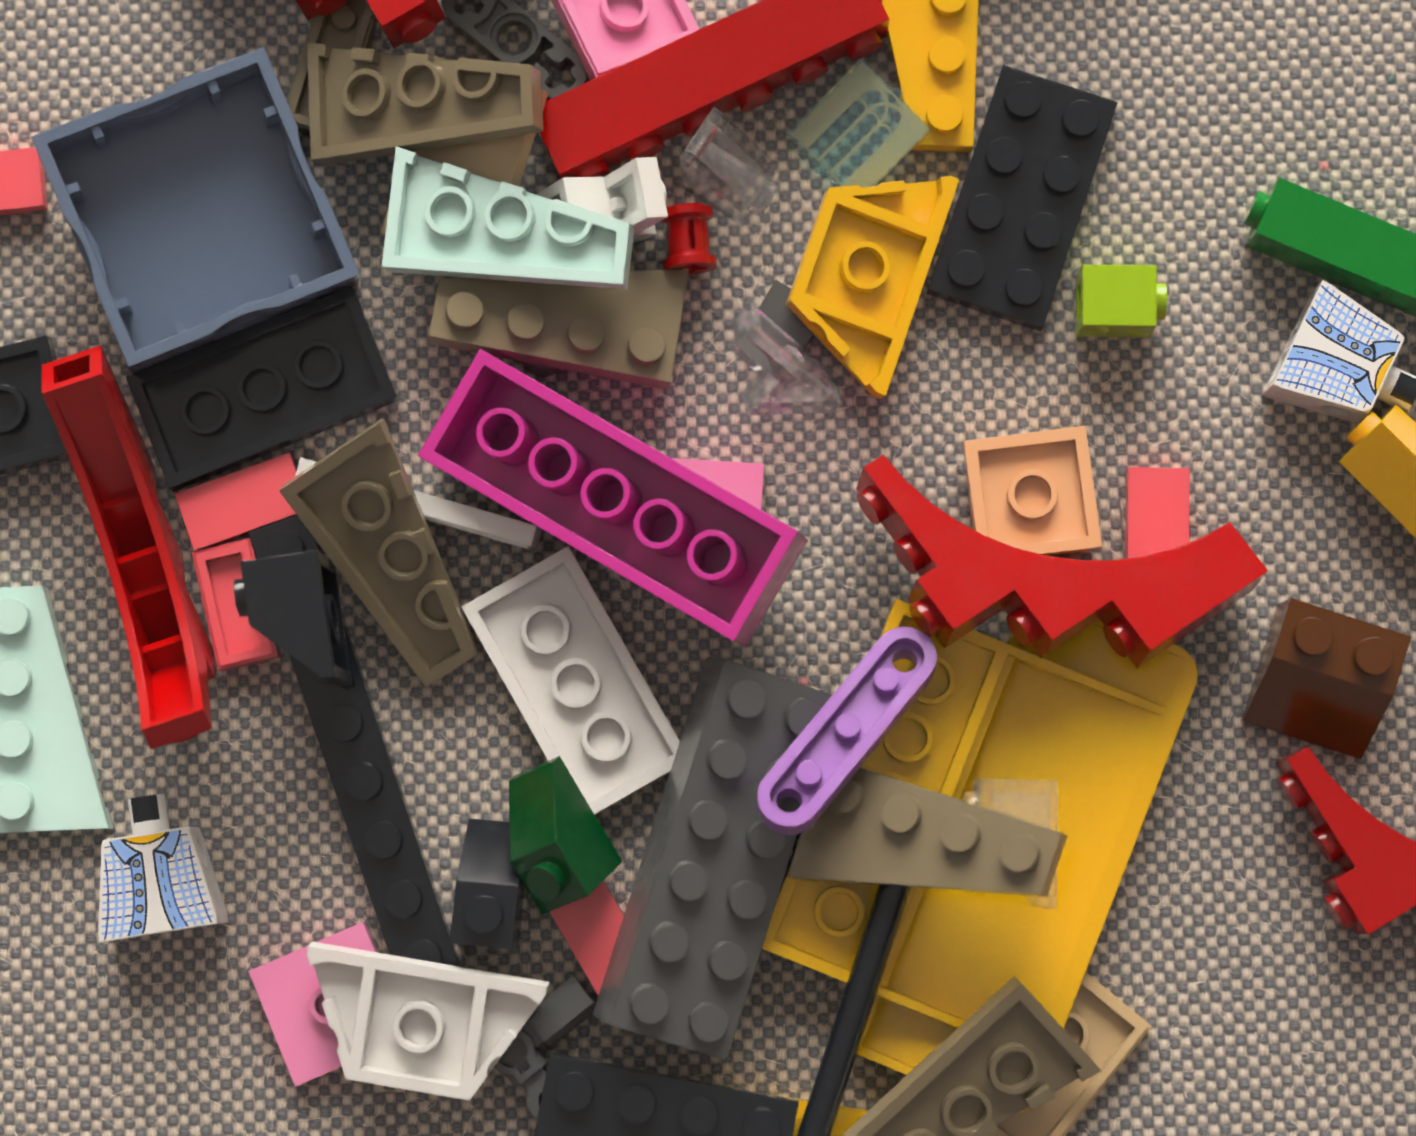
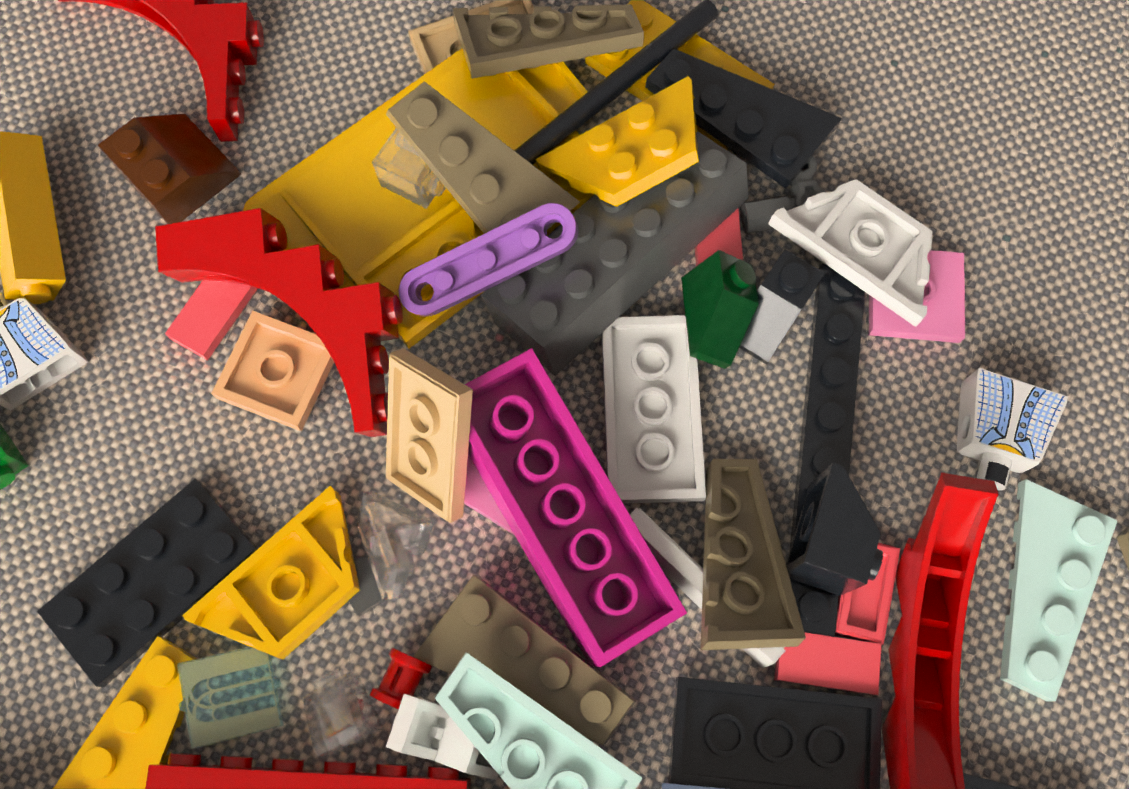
camera: 160 degrees left, 10 degrees down
(759, 977) = (631, 148): none -> yellow wing
(799, 491) = (428, 434): none -> tan tile
(1119, 300) = (133, 466): lime brick -> none

